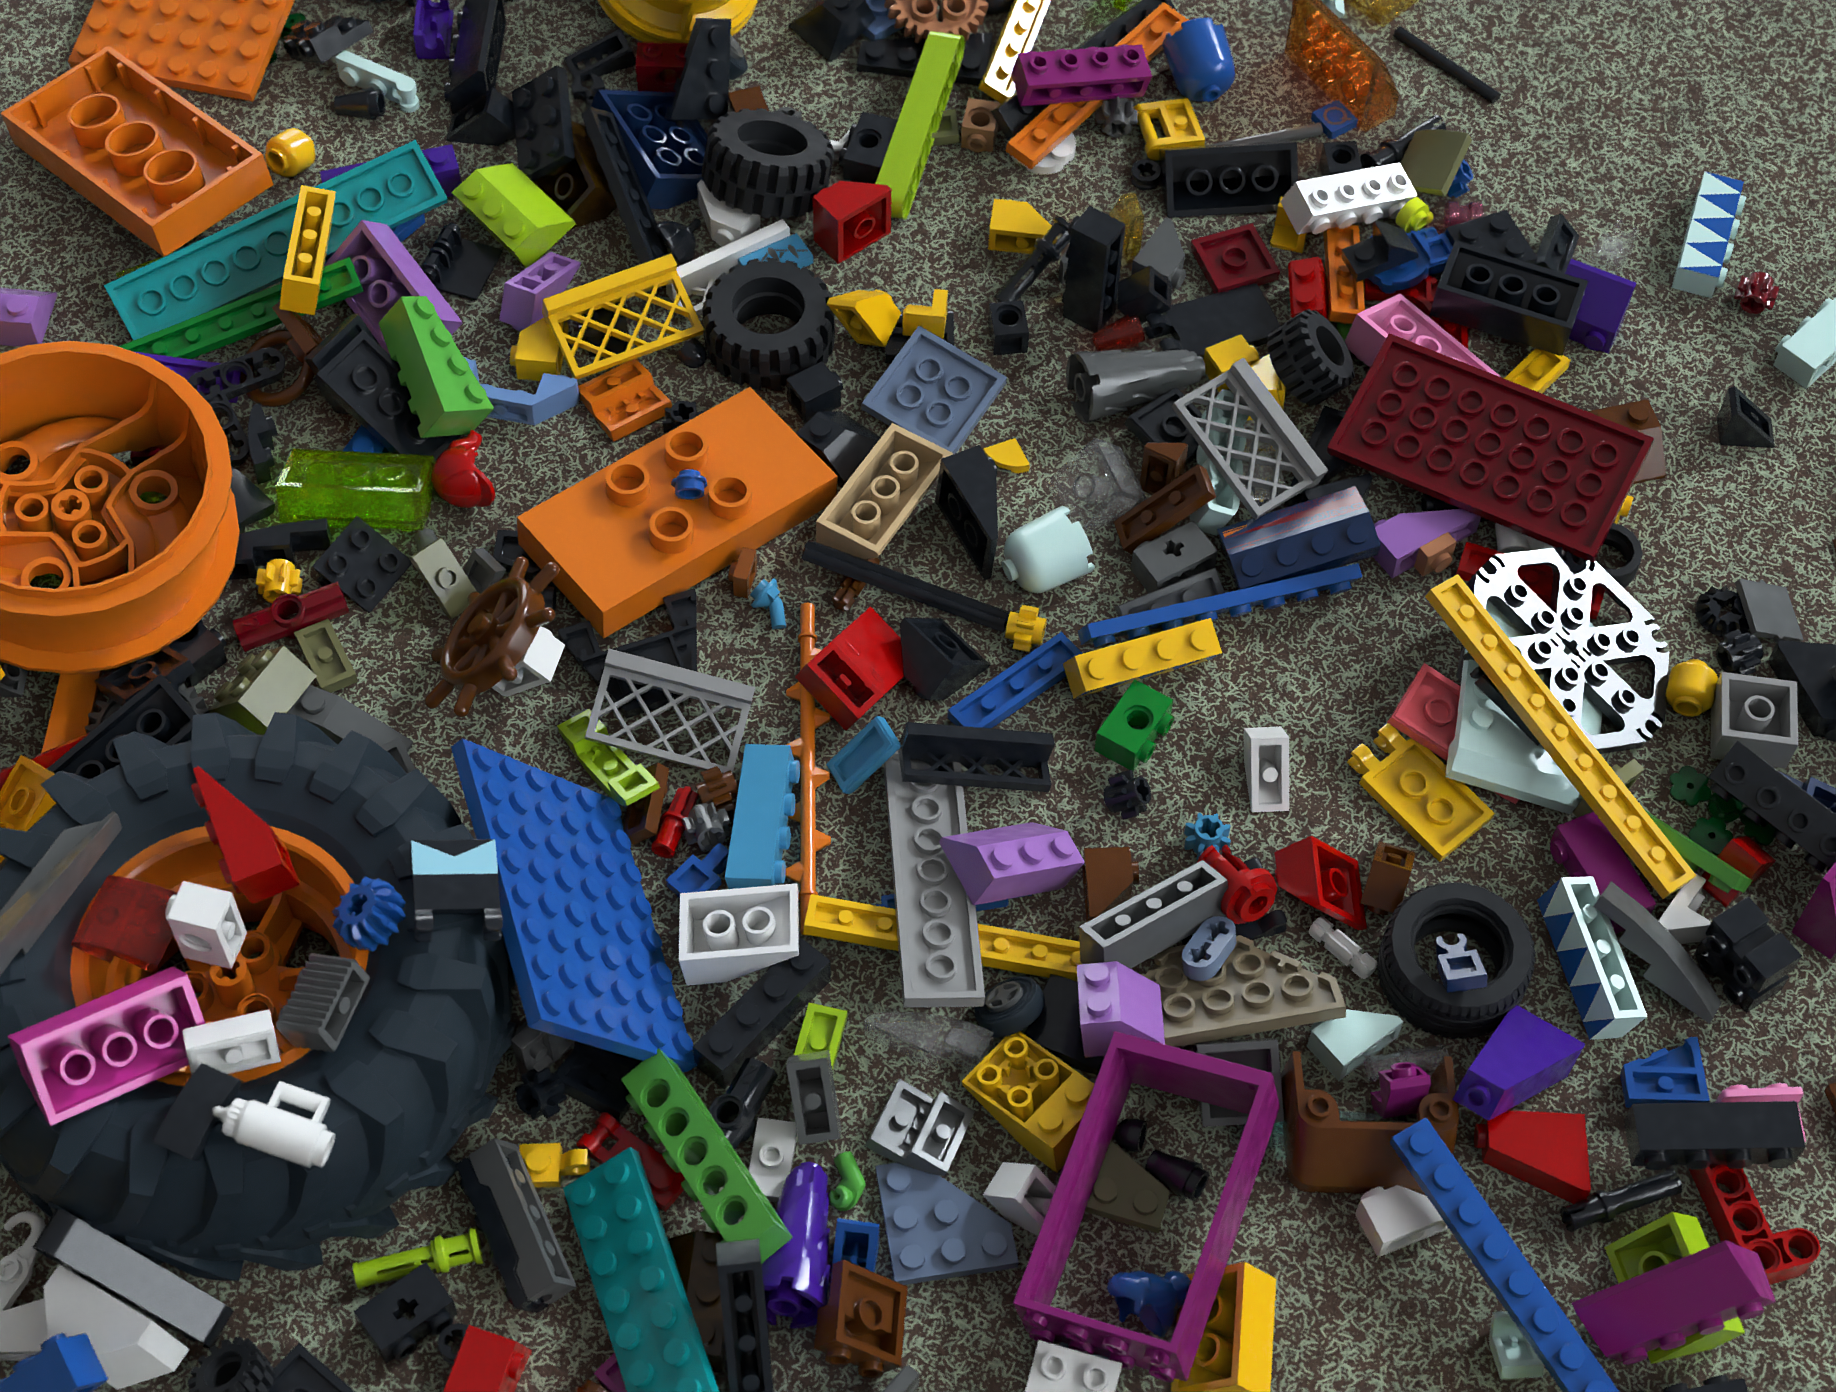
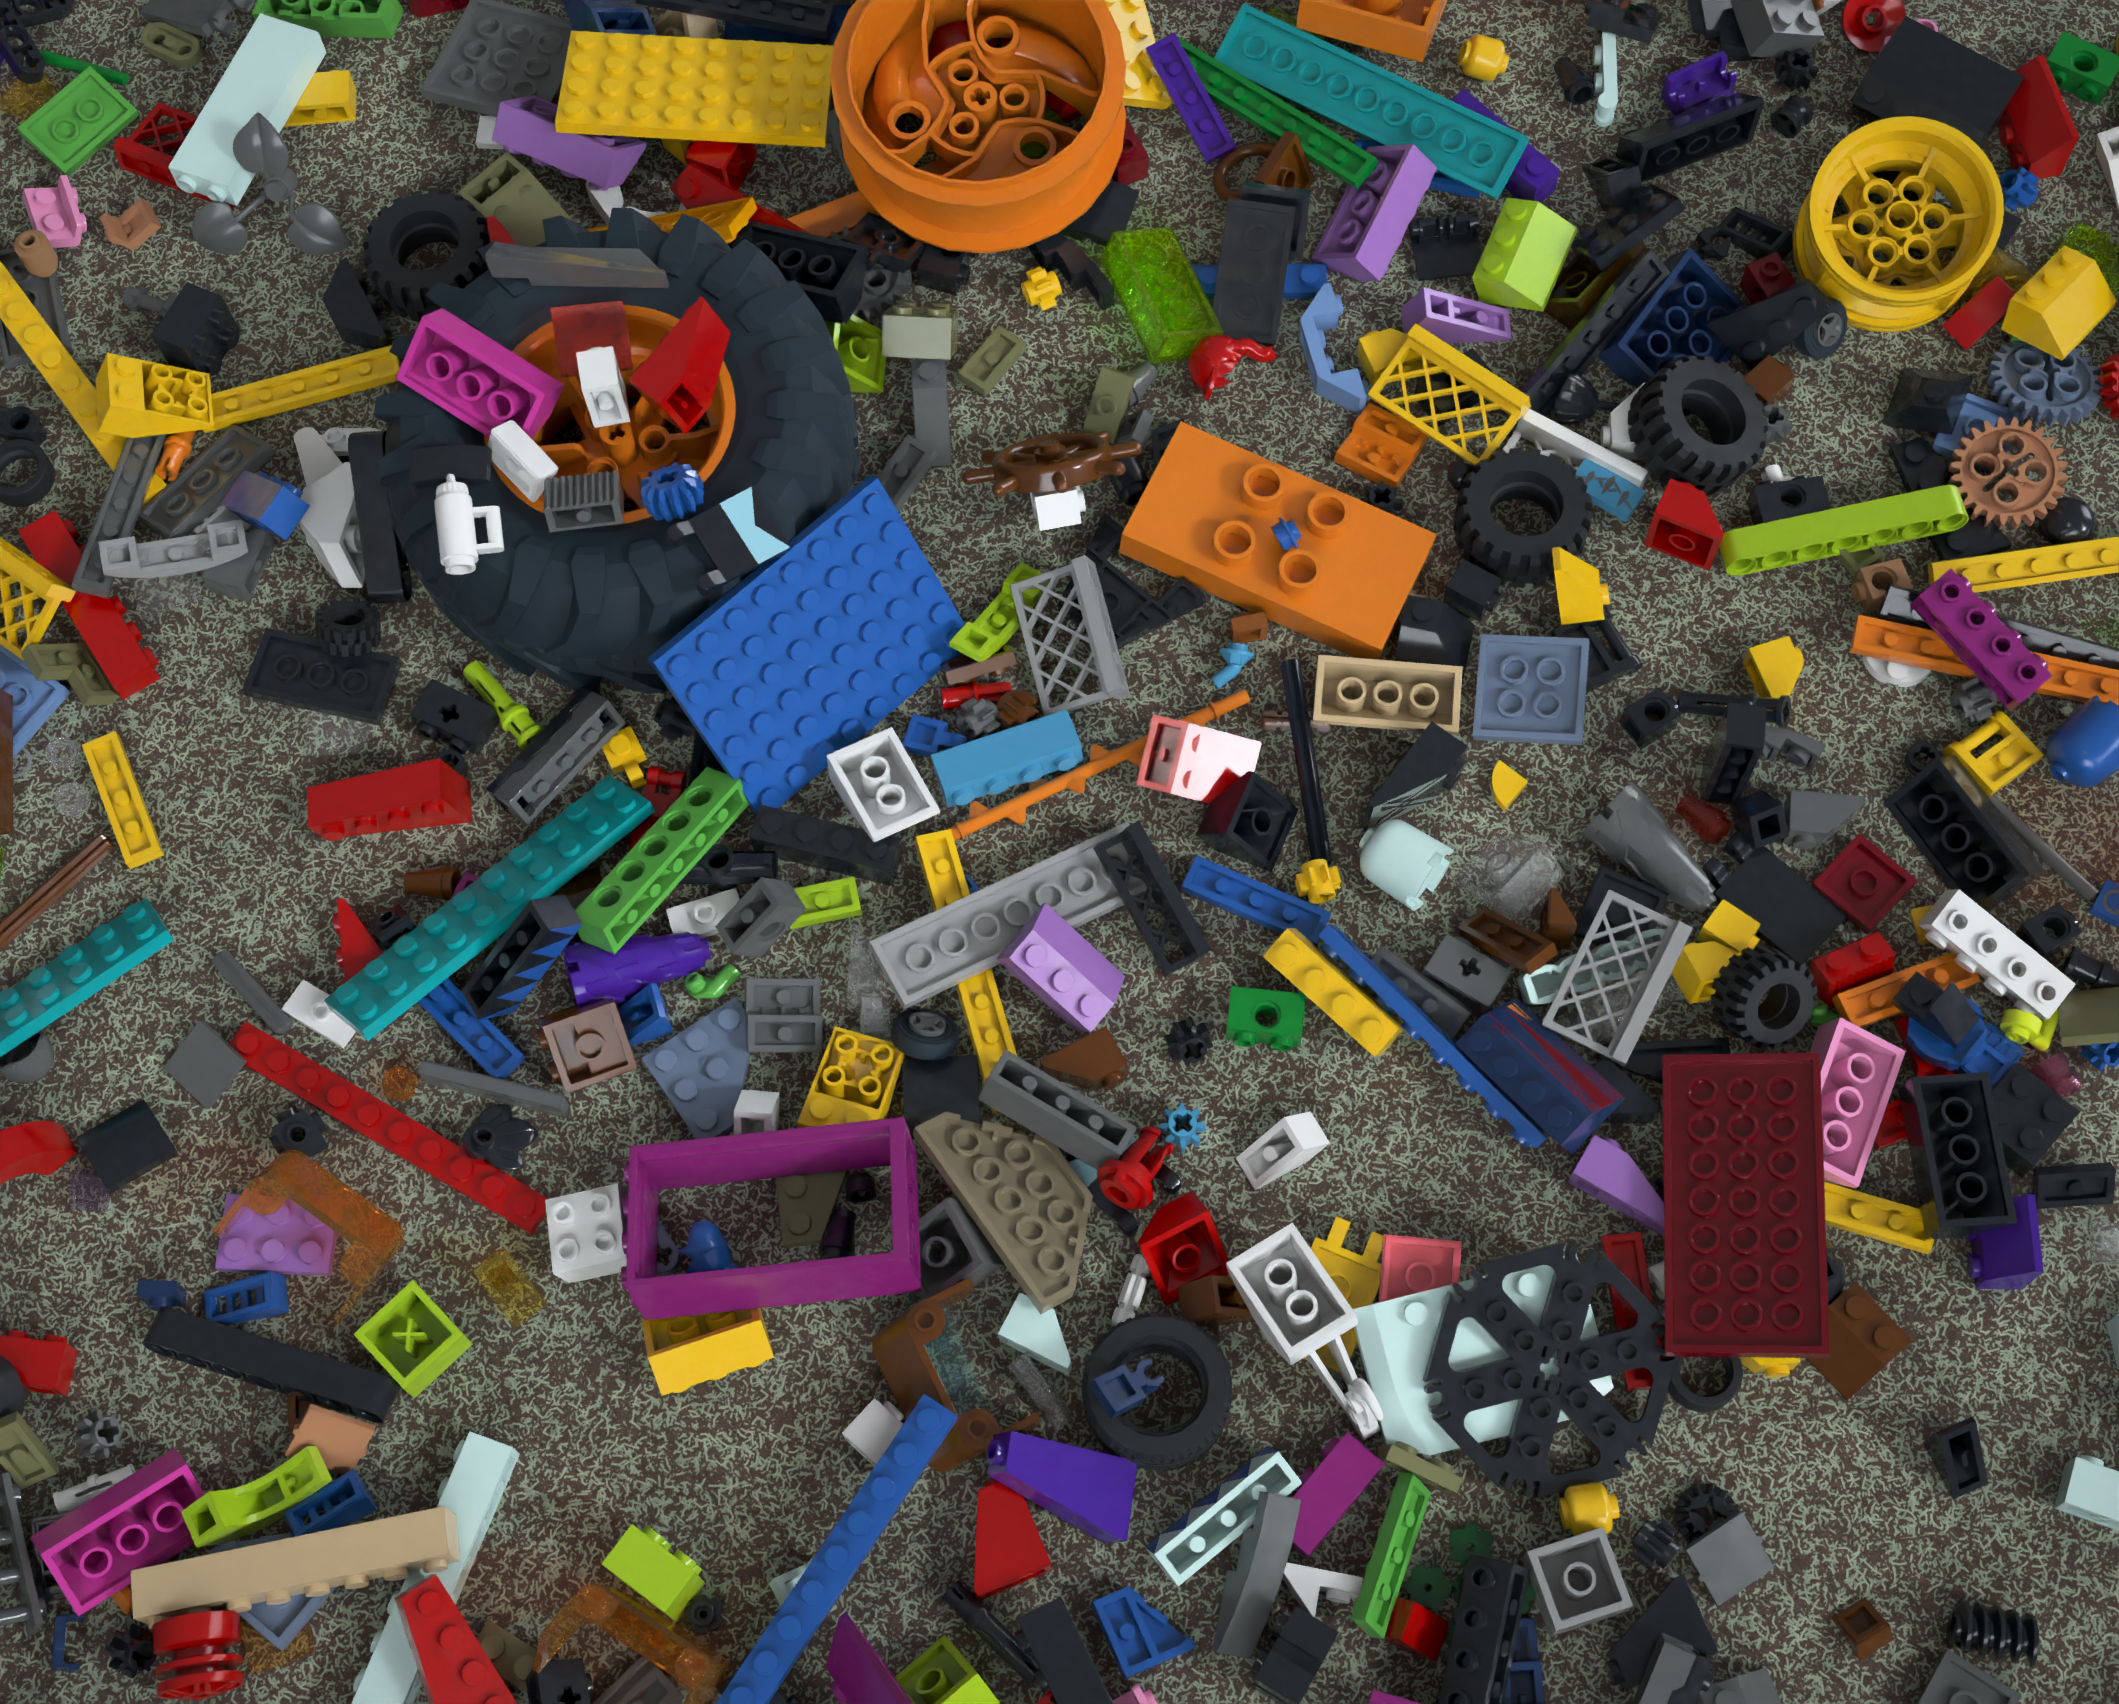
camera: 70 degrees right, 10 degrees up
(219, 398) = (1187, 149): black beam -> none
(260, 441) = (1172, 197): black slope -> none
(270, 623) = (1026, 325): dark red piece -> none
(307, 250) = (1351, 121): yellow brick -> none
(362, 564) = (1093, 337): black hinge -> none
(433, 370) = (1295, 283): bright green wedge -> none
(863, 755) = (1109, 807): dark azure tile -> none
(928, 317) = (1610, 642): yellow panel -> none
(1117, 1001) = (949, 1118): medium lavender slope -> none
(1129, 212) = (1831, 766): clear yellow wing -> none
(1216, 951) = (1059, 1172): sand blue beam -> none
(1400, 1090) = (992, 1390): magenta slope -> none
(1435, 554) = (1609, 1210): nougat plate -> none
(1445, 803) = (1301, 1312): none -> white slope
(1560, 736) = (1424, 1389): yellow plate -> none

